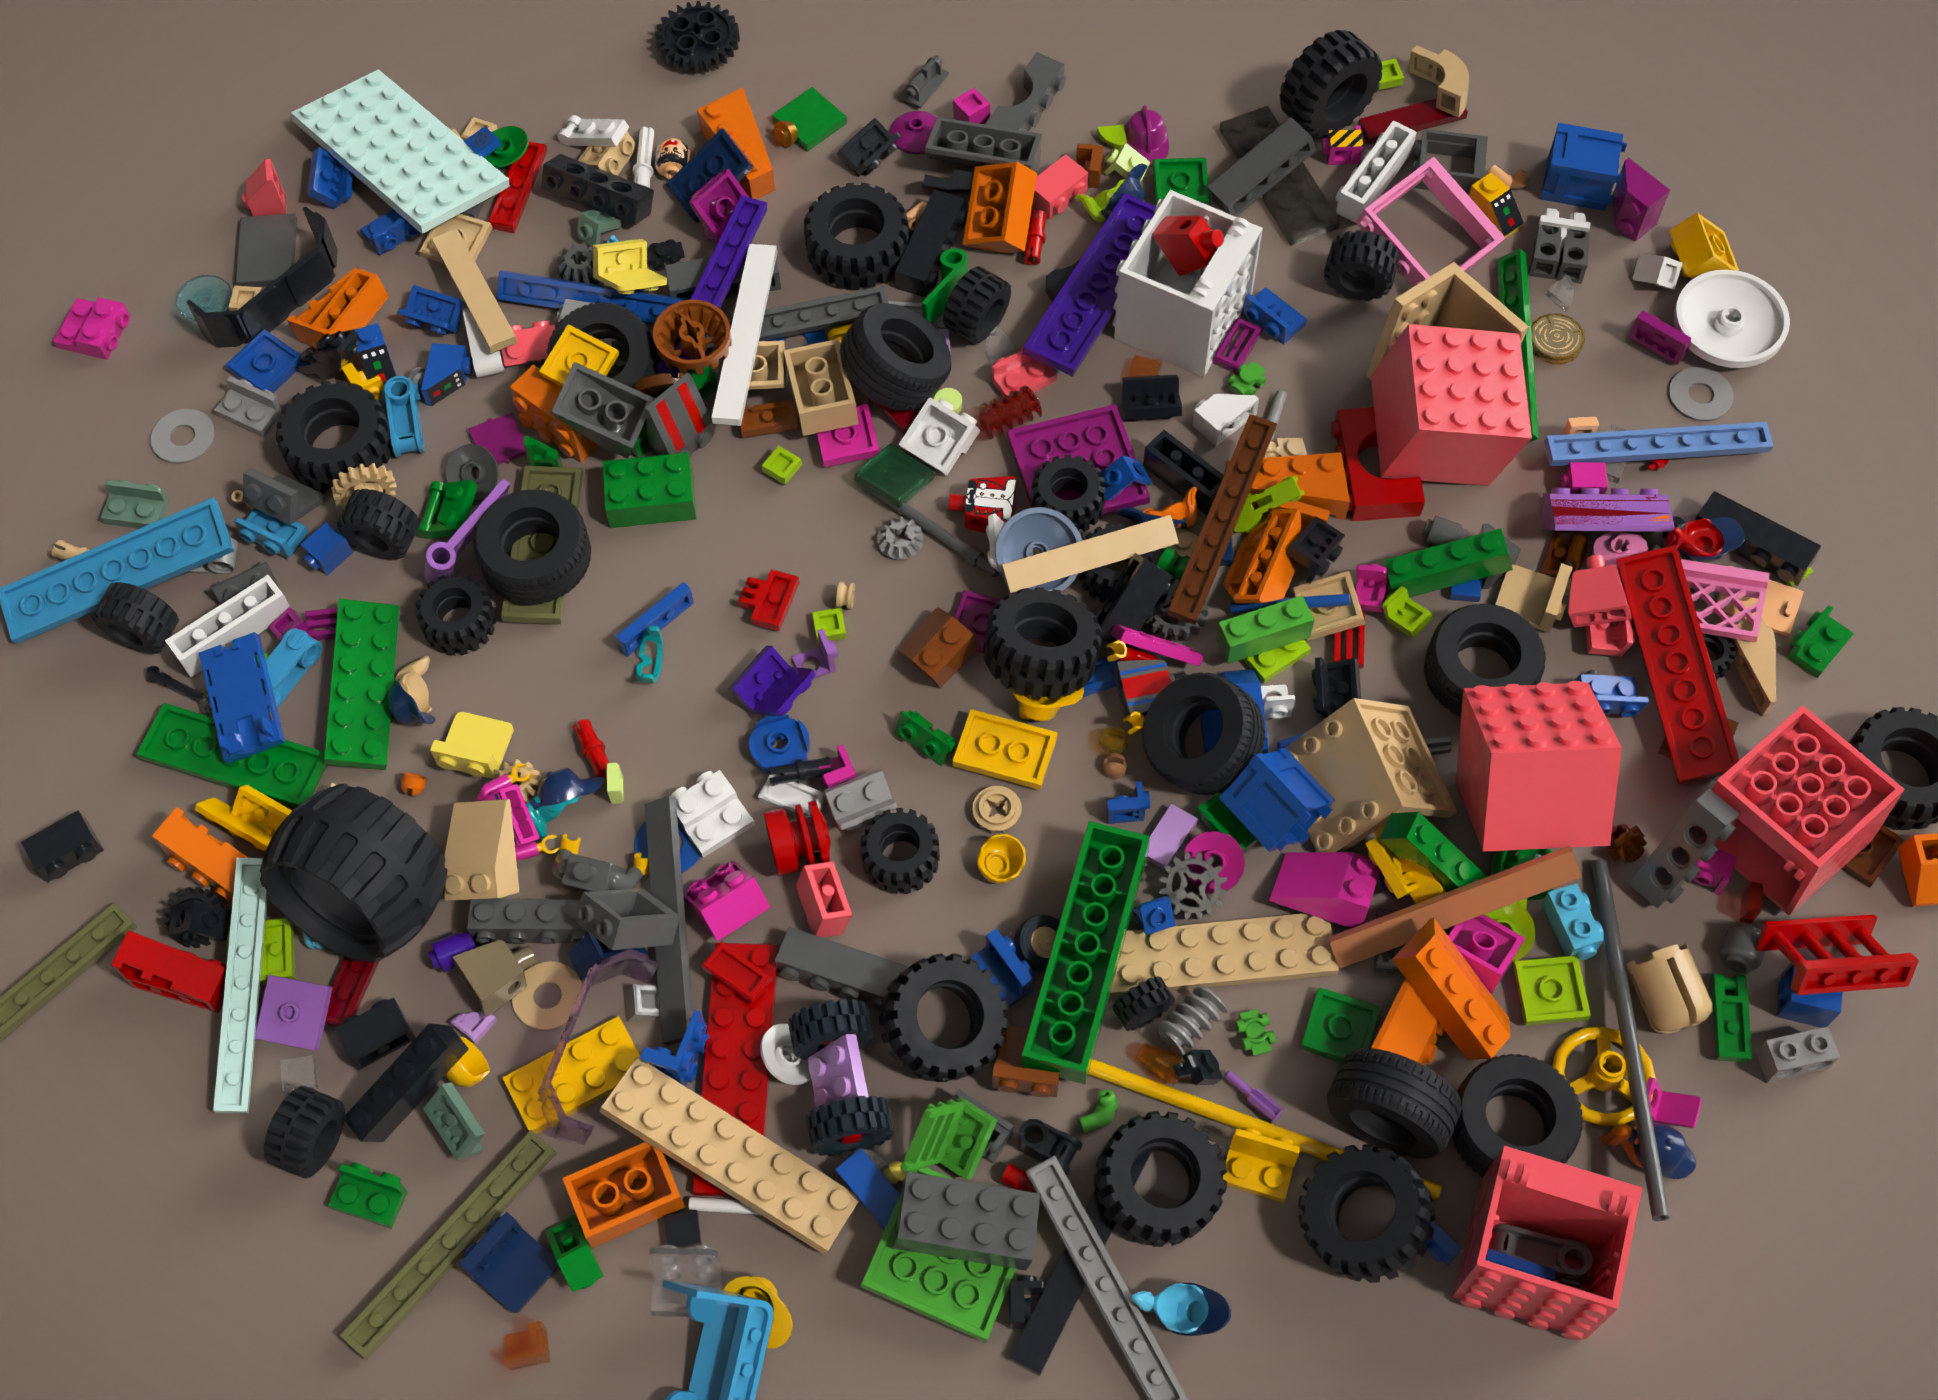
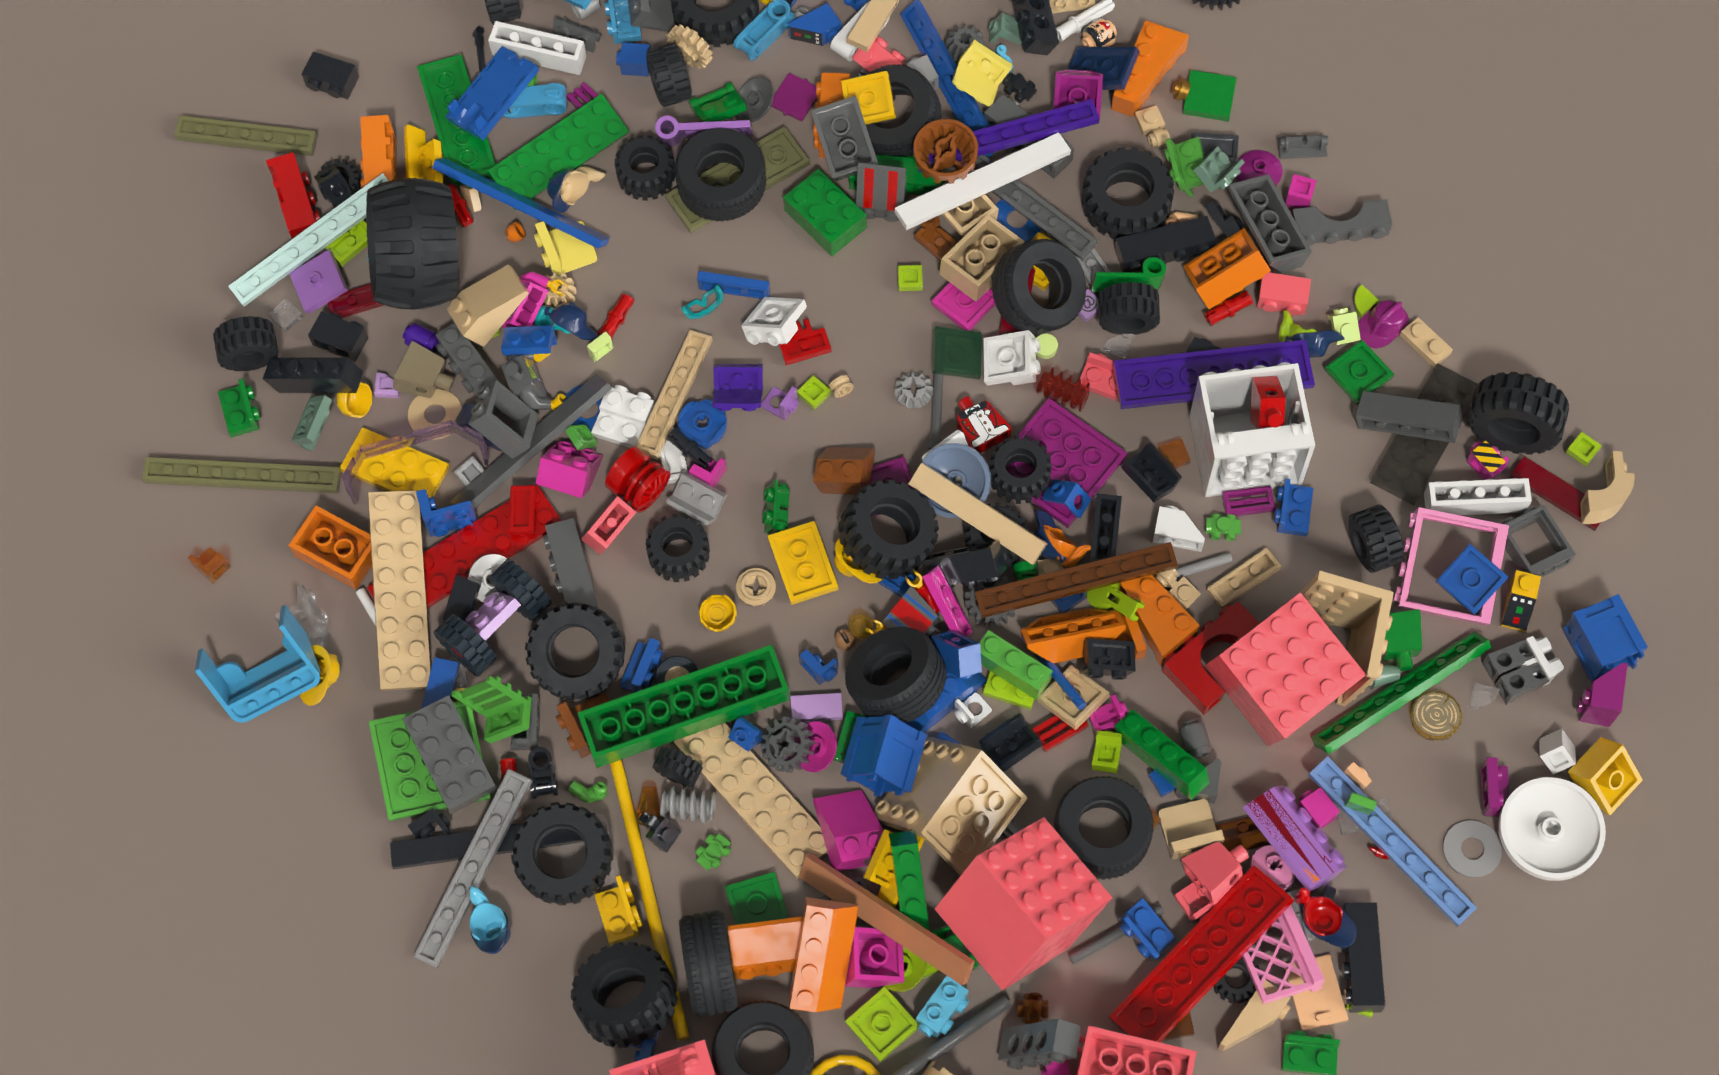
camera: 55 degrees right, 5 degrees up
(285, 622) = (568, 78): magenta tile -> none
(389, 751) = (520, 203): none -> blue tile
(509, 1263) = (251, 516): dark blue bracket -> none
(541, 454) = (796, 130): green tile -> none
(556, 839) = (528, 340): none -> blue bracket
(574, 1254) = (274, 549): green slope -> none
(655, 384) = (893, 159): reddish brown tile -> none
(683, 1229) = (340, 599): black tile -> none
(700, 864) = (581, 437): none -> bright green tile
(725, 748) = (674, 393): none -> tan tile
(728, 605) = (773, 320): none -> white plate
(789, 1098) = (462, 596): none -> black tile
(796, 177) = (1152, 123): none -> tan plate
(871, 167) = (1184, 160): none -> bright green bracket
(903, 150) = (1217, 170): none -> sand green bracket
(1092, 158) = (1324, 304): dark orange bracket -> none
(1191, 119) = (1426, 342): none -> tan plate
(1224, 658) = (959, 653): none -> blue slope
(1257, 1098) = (667, 882): medium lavender axle -> none
(1310, 397) = (1244, 578): none -> tan tile
(1459, 219) = (1471, 579): none -> blue tile
(1512, 181) = (1555, 595): arm -> none
(1615, 437) = (1360, 803): none -> bright green tile

